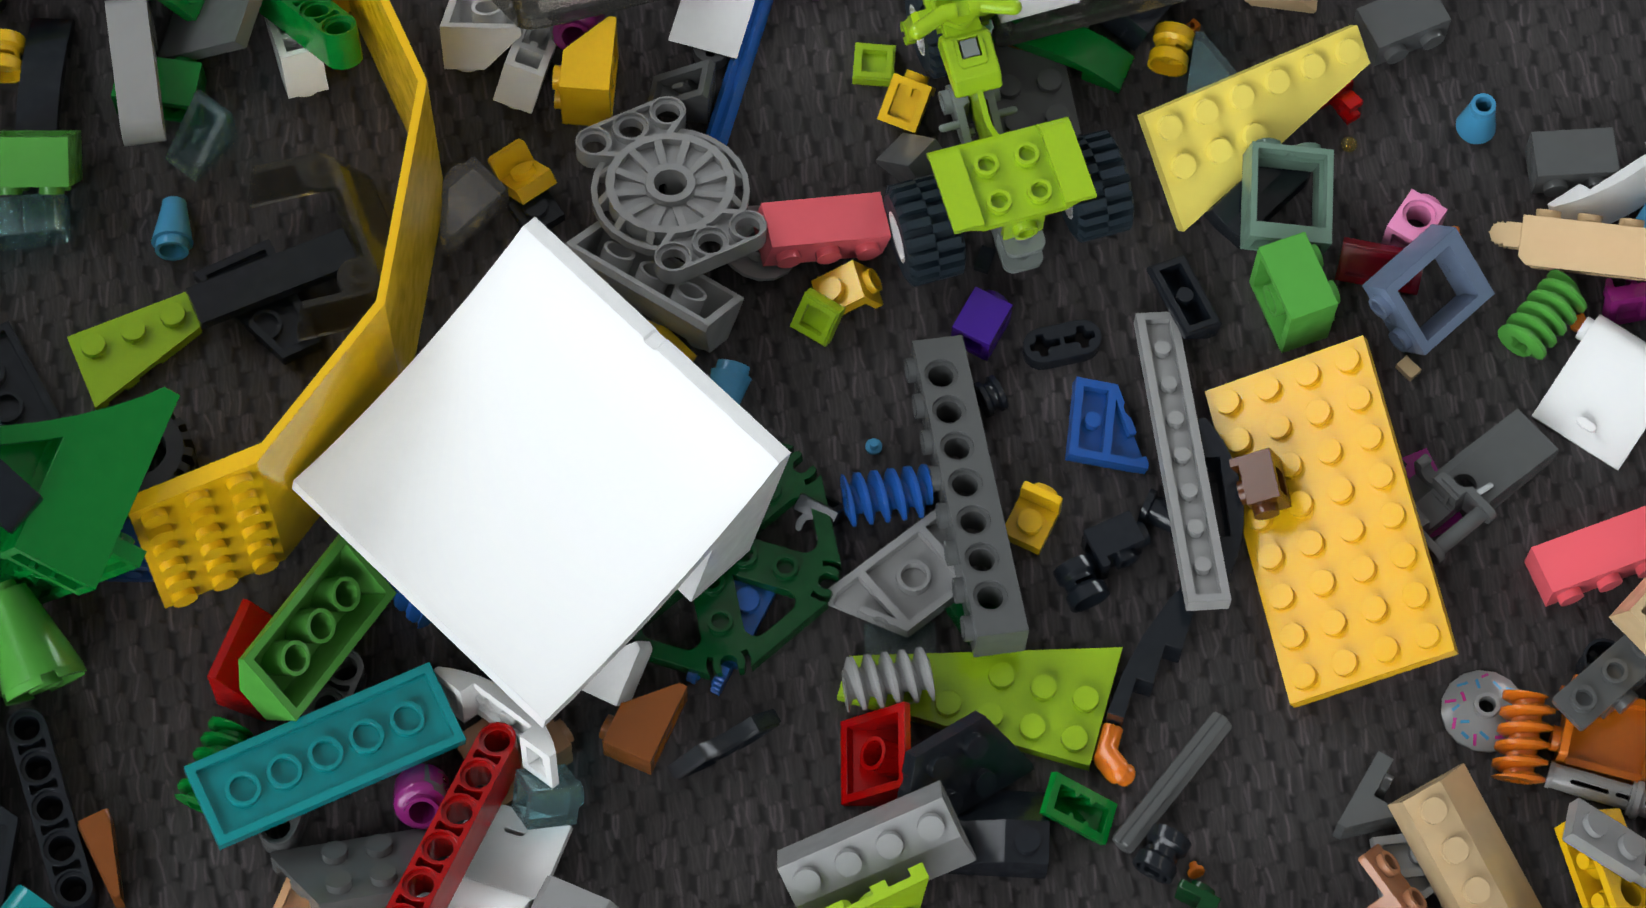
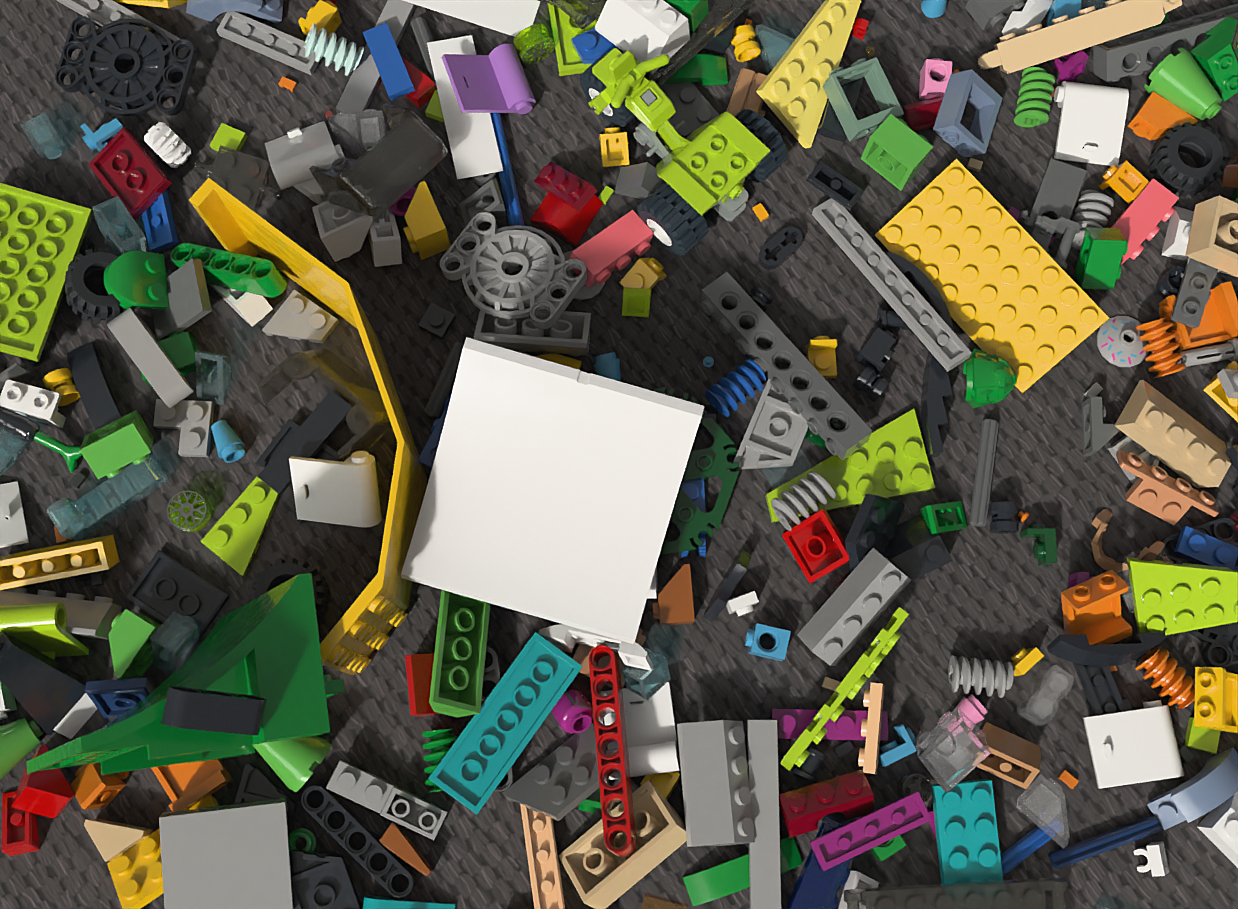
camera: 30 degrees left, 10 degrees up
(75, 293) = (189, 512): none -> clear neon green wheel
(116, 779) = (386, 799): none -> light grey slope
(144, 182) = (195, 423): none -> light grey plate
(271, 350) = (337, 490): none -> white door
(357, 122) = (301, 319): none -> light grey wing
(469, 203) = (395, 334): clear slope -> none
(520, 172) = (416, 303): yellow bracket -> none
(730, 778) = (742, 604): none -> white plate
(740, 864) = (780, 642): none -> dark azure brick
(796, 153) = (564, 220): none -> red slope
(804, 115) = (565, 186): none -> dark red plate
(861, 159) = (606, 194): none -> lime piece
(873, 64) = (581, 135): lime tile -> none
(982, 322) = (731, 257): dark purple brick -> none
(1063, 285) = (760, 212): none -> light orange piece
(1101, 429) = (830, 286): blue wing -> none
(1110, 760) = (943, 477): orange arm -> none
(1123, 124) = (745, 93): none -> medium nougat brick
(1243, 654) = (987, 378): none -> green helmet
(1262, 483) = (945, 274): brick -> none
(1400, 754) = (1094, 390): none -> light grey piece
(1502, 574) = (1100, 258): none -> green brick
(1525, 517) = (1091, 212): none -> light grey piece
(1608, 490) = (1124, 180): none -> light orange bracket

